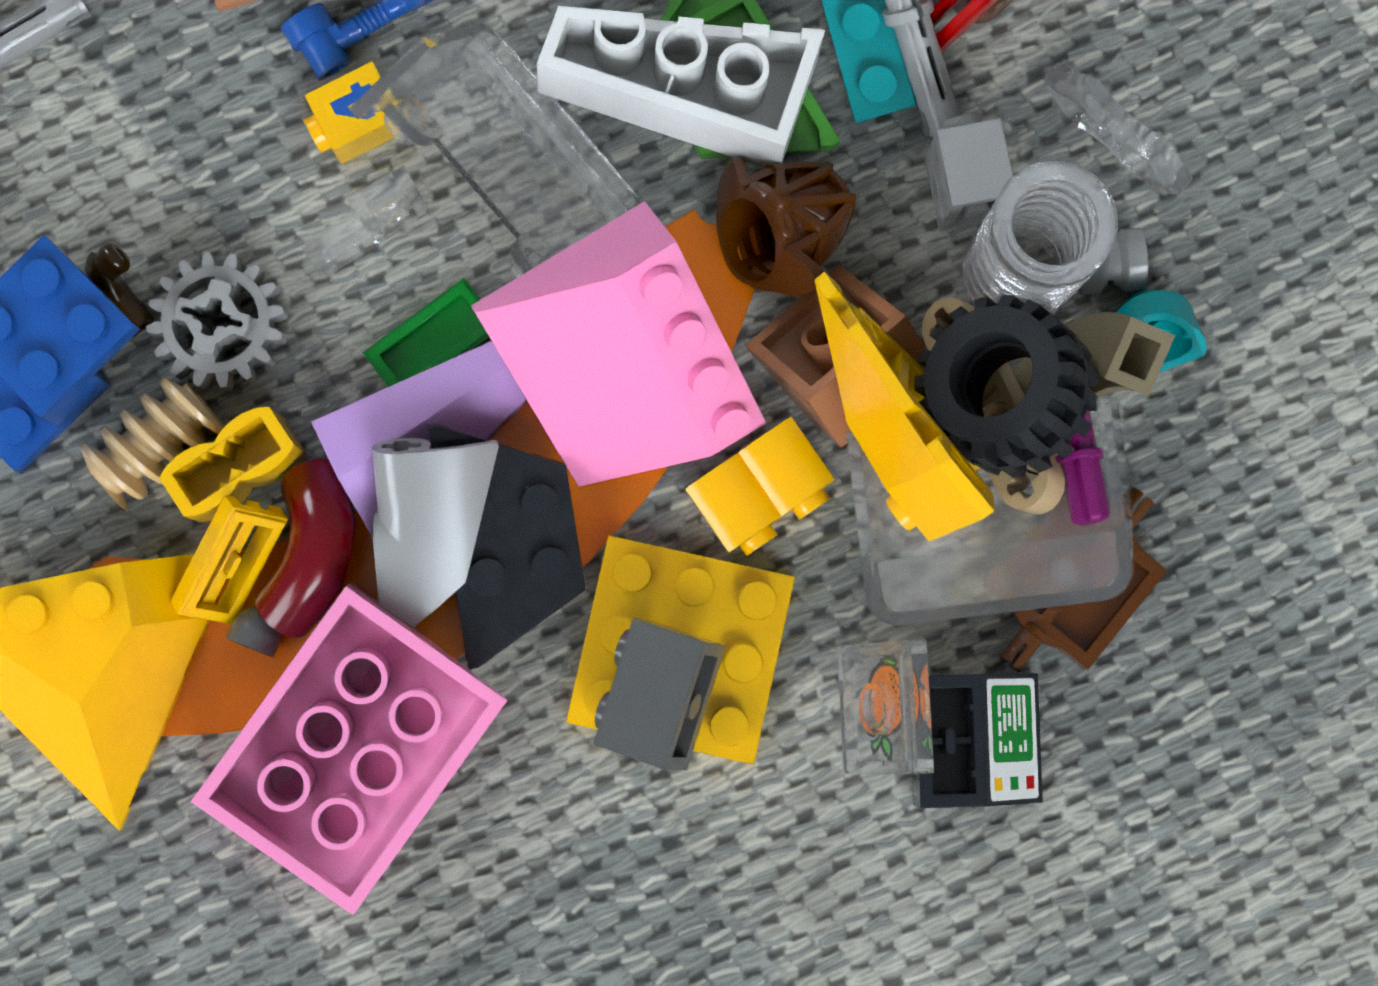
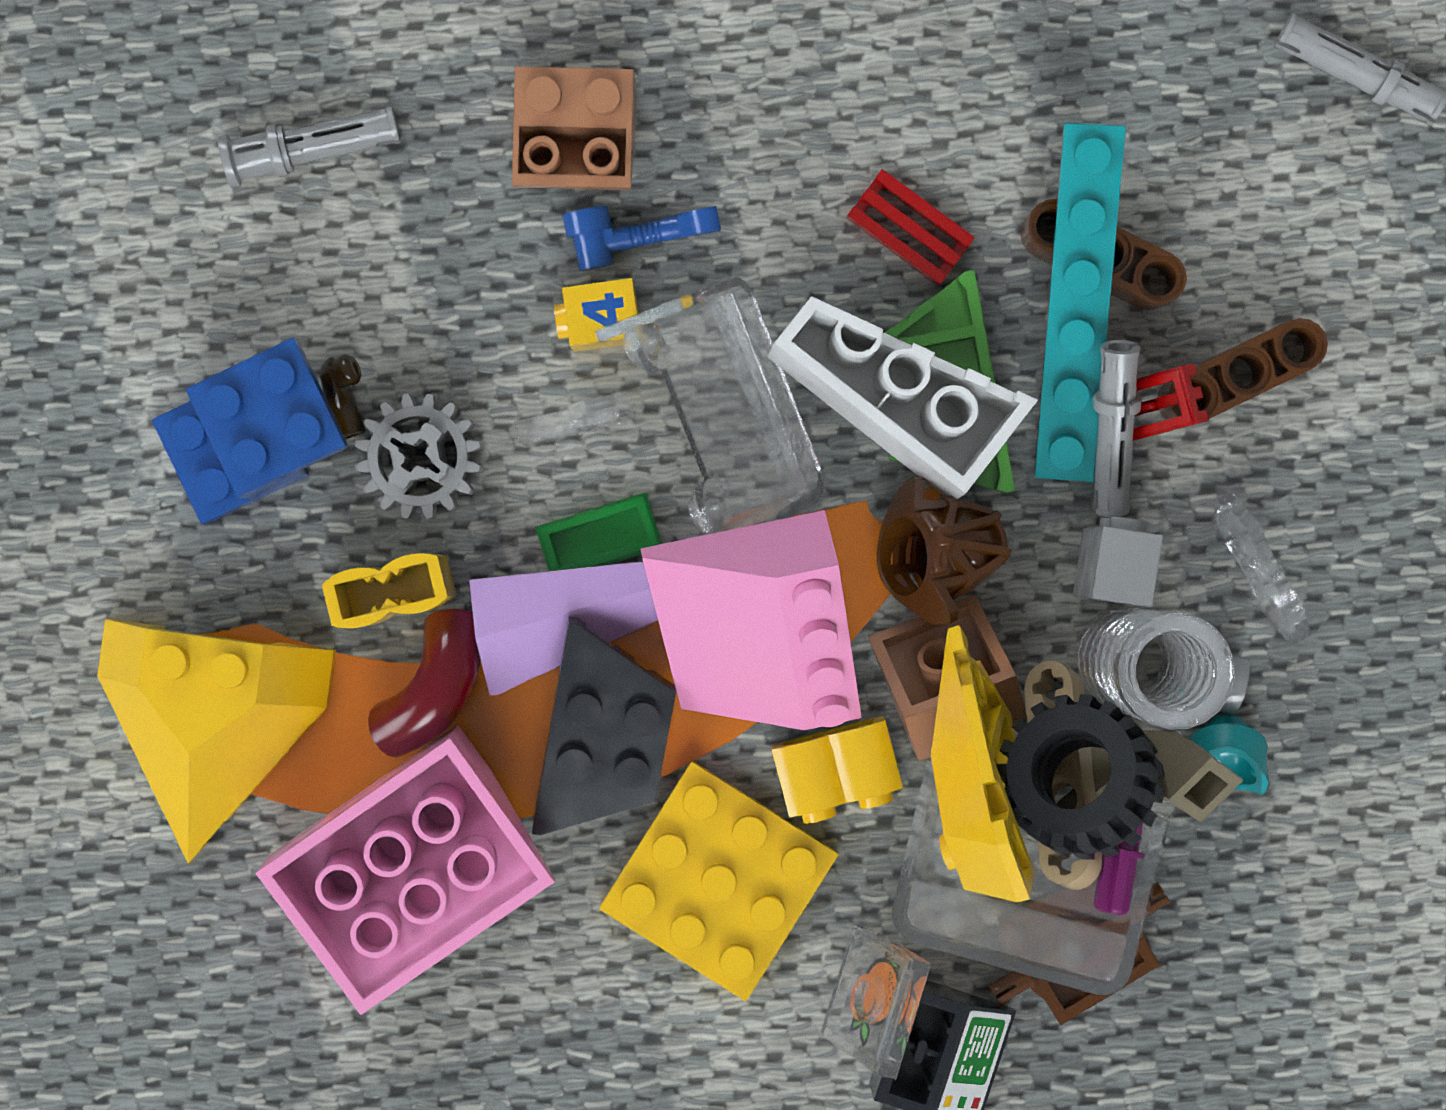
camera: 25 degrees right, 5 degrees up
(149, 440) = (327, 543): tan piece -> none
(220, 559) = (351, 668): yellow tile -> none
(254, 633) = (356, 738): dark grey hinge -> none
(426, 521) = (539, 701): light grey panel -> none
(658, 694) = (684, 923): dark grey brick -> none

